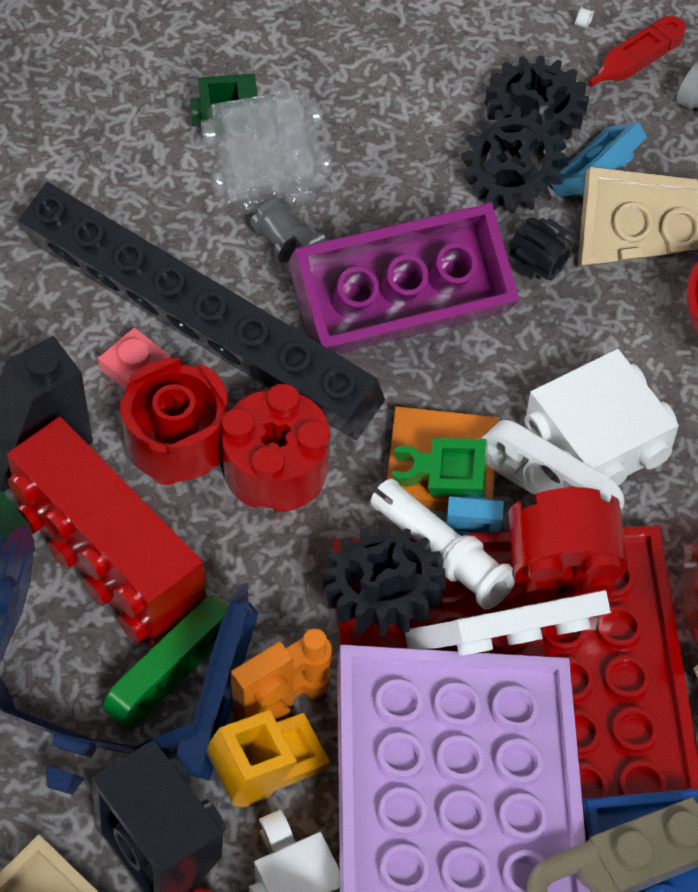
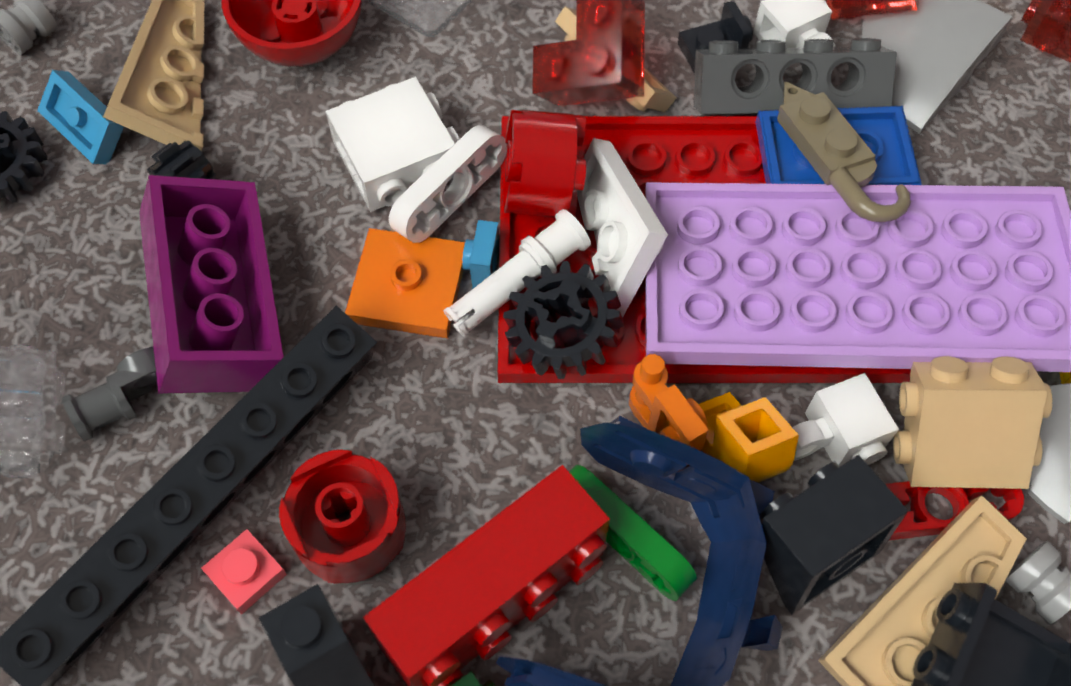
camera: 85 degrees left, 5 degrees up
(275, 449) = (386, 391): red brick -> none
(452, 468) = (434, 261): green plate -> none
(526, 141) = (46, 187): black gear -> none

